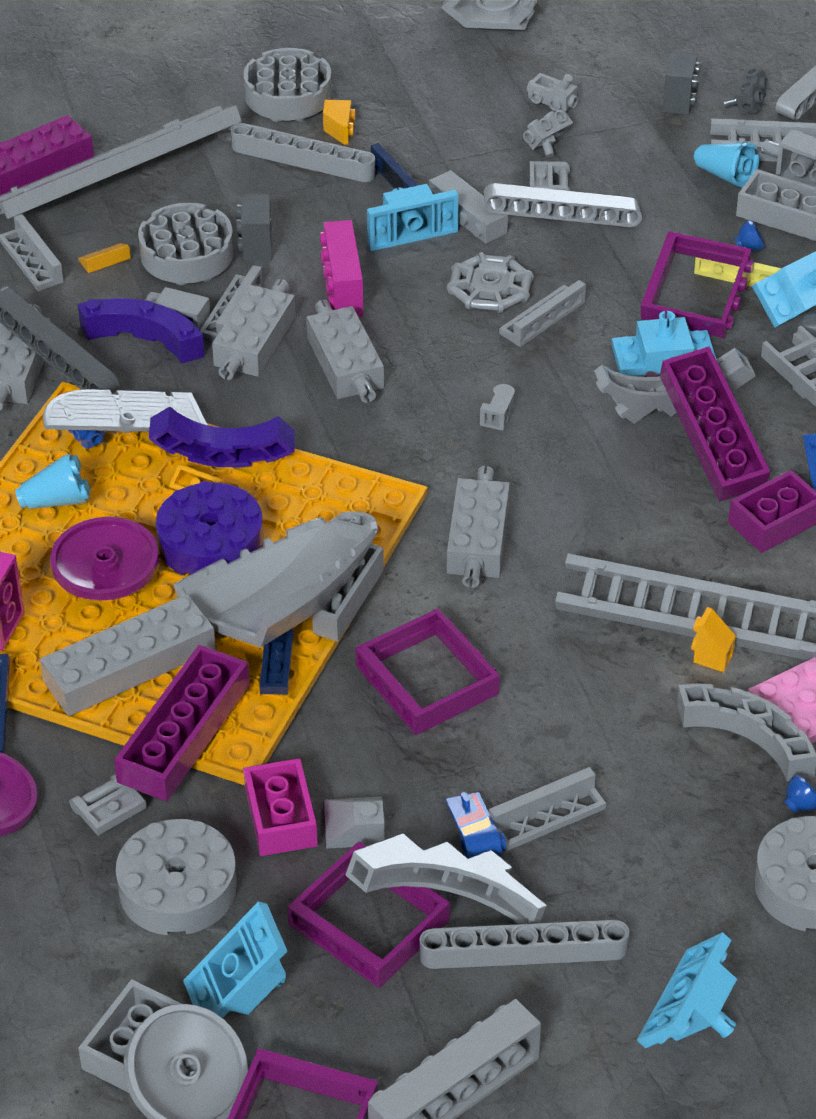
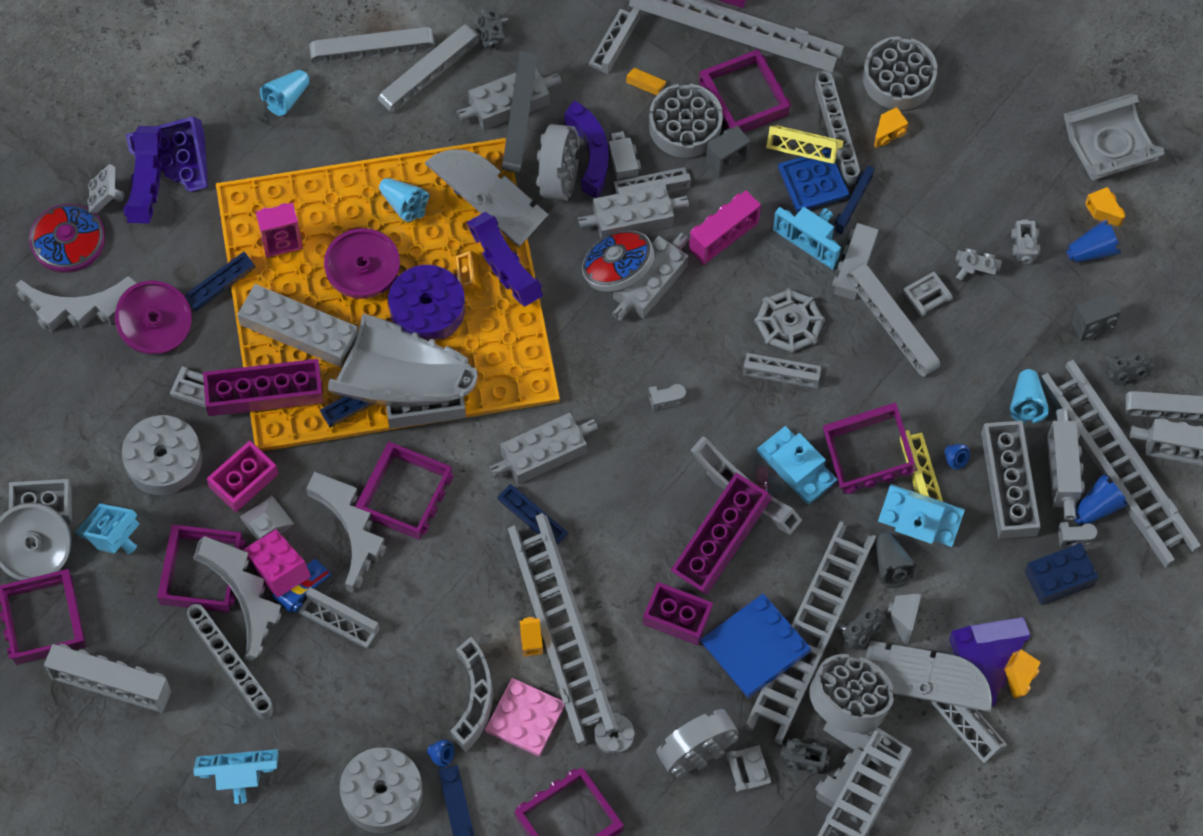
camera: 55 degrees right, 20 degrees up
(146, 339) = (558, 162): none -> light grey brick
(199, 171) = (758, 119): none -> magenta window
(299, 167) = (804, 137): none -> light yellow fence
(305, 360) = (618, 260): none -> dish
(344, 194) = (813, 182): none -> blue plate
(432, 733) = (357, 522): none -> light grey arch
(436, 816) = (277, 563): none -> dark pink brick
(542, 580) = (527, 512): none -> dark blue plate
(564, 33) = (1103, 207): none -> light orange slope
(599, 48) = (1094, 244): none -> blue cone

